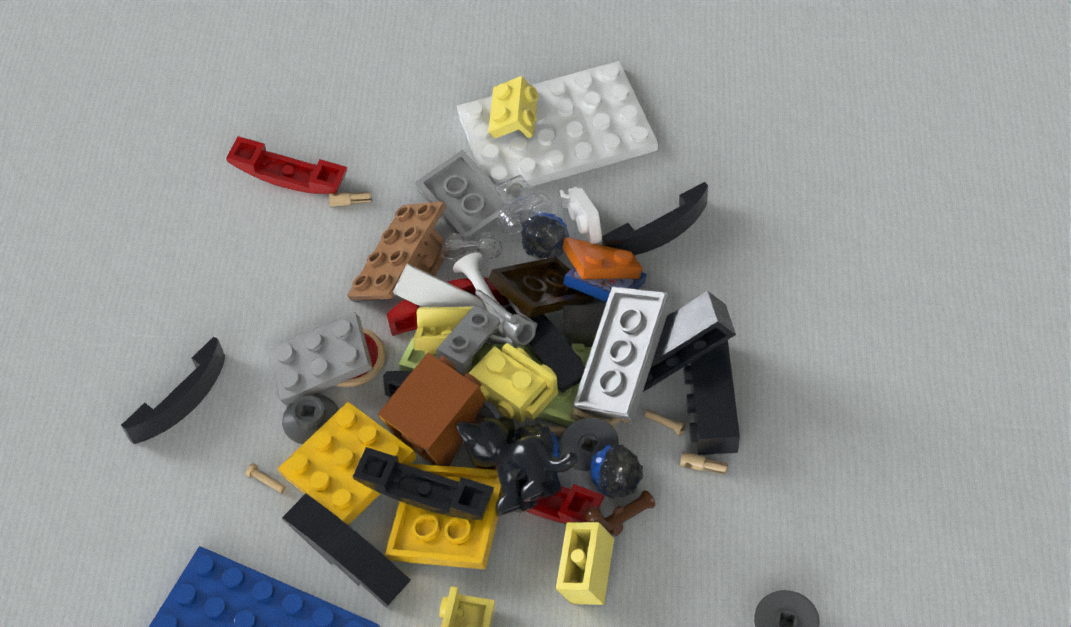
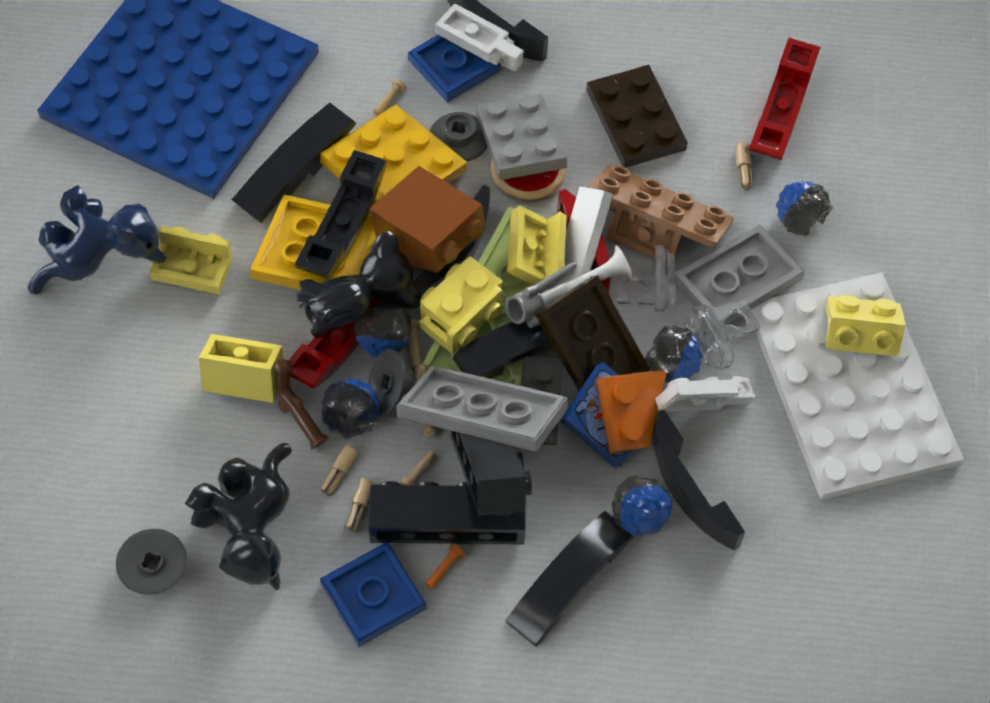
camera: 85 degrees right, 5 degrees up
(207, 396) = (479, 37): none -> white hinge
(224, 426) = (450, 67): none -> blue tile
(294, 277) = (636, 116): none -> dark brown plate
(399, 151) = (802, 205): none -> clear smoke piece
(468, 338) = (513, 255): light grey bracket -> none
(671, 483) = (341, 467): none -> tan pin
(688, 251) = (641, 505): none -> blue piece
(738, 387) = (455, 552): none -> orange piece
(752, 302) = (567, 577): none -> black slope
(774, 529) = (257, 501): none -> black animal
(784, 446) = (373, 594): none -> blue tile

